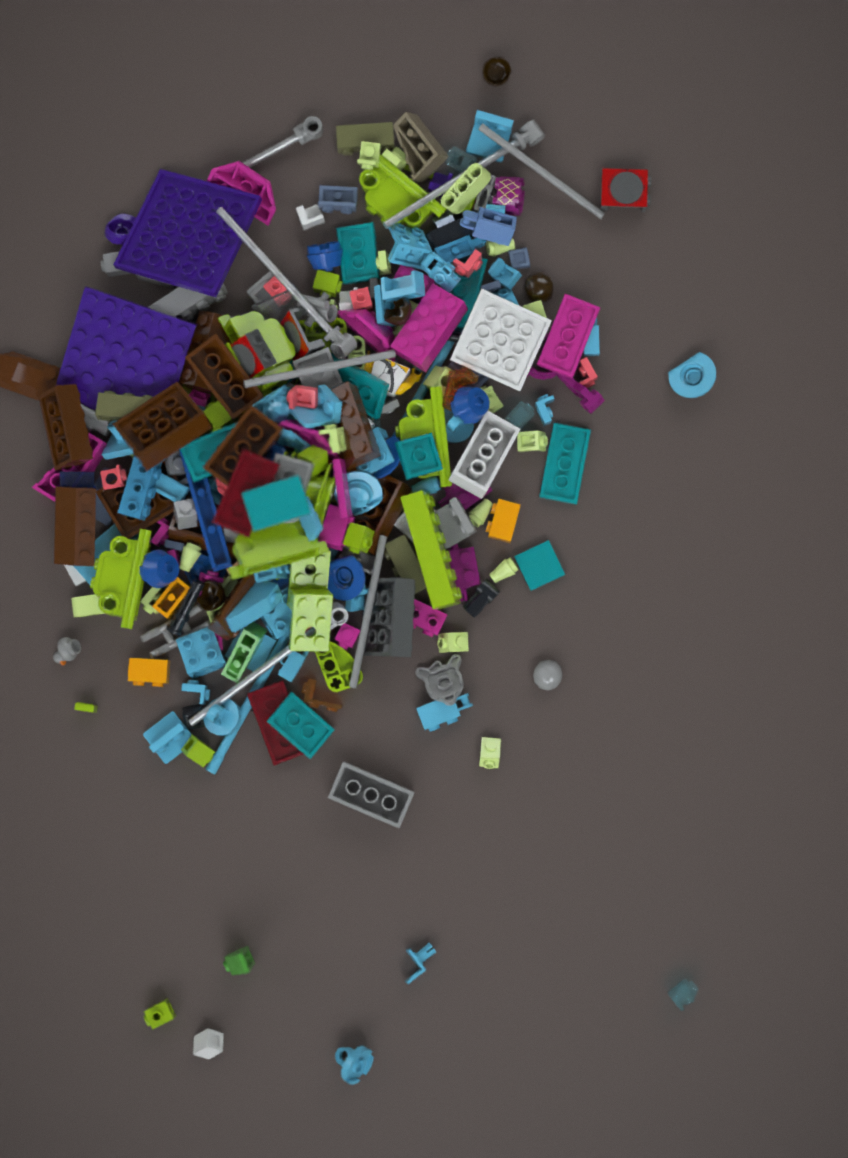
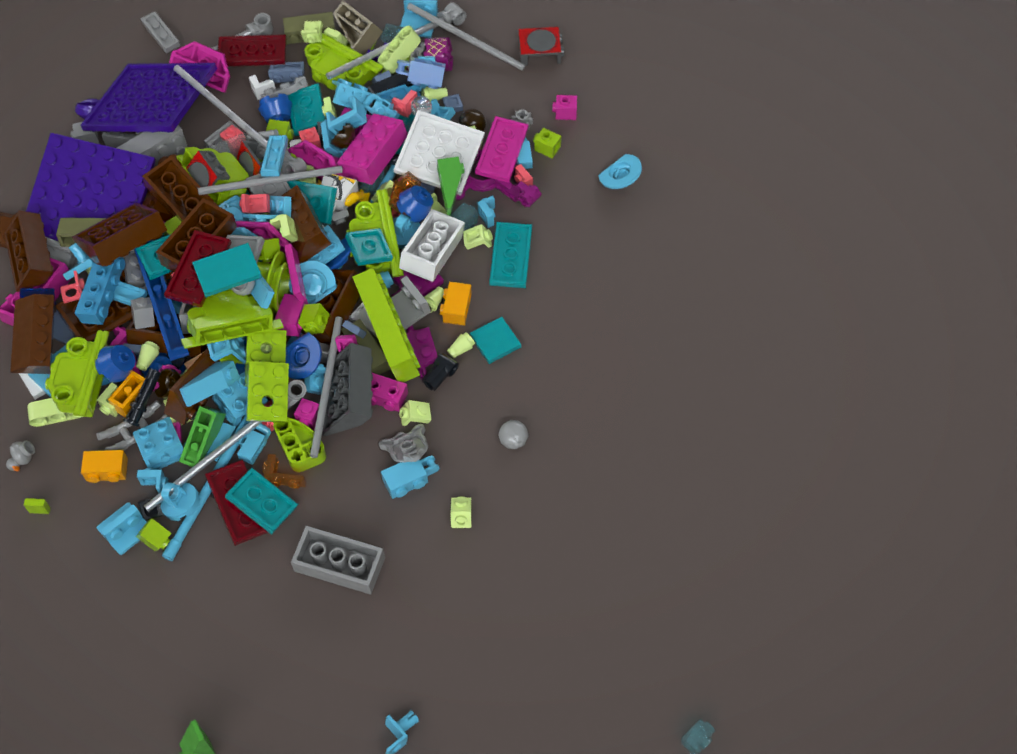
camera: 10 degrees left, 25 degrees down
(196, 126) = (160, 32): none -> light grey plate
(300, 167) = (253, 50): none -> dark red tile
(324, 337) = (274, 155): none -> medium azure tile
(333, 226) = (286, 88): none -> light grey hinge
(390, 568) = (344, 340): none -> dark pink plate
(398, 551) = (354, 329): none -> sand blue tile
(485, 274) = (421, 103): none -> clear piece
(509, 377) = (450, 176): none -> bright green slope
(599, 293) = (523, 117): none -> light grey gear
(617, 326) = (547, 143): none -> lime brick
(643, 279) = (565, 107): none -> dark pink brick

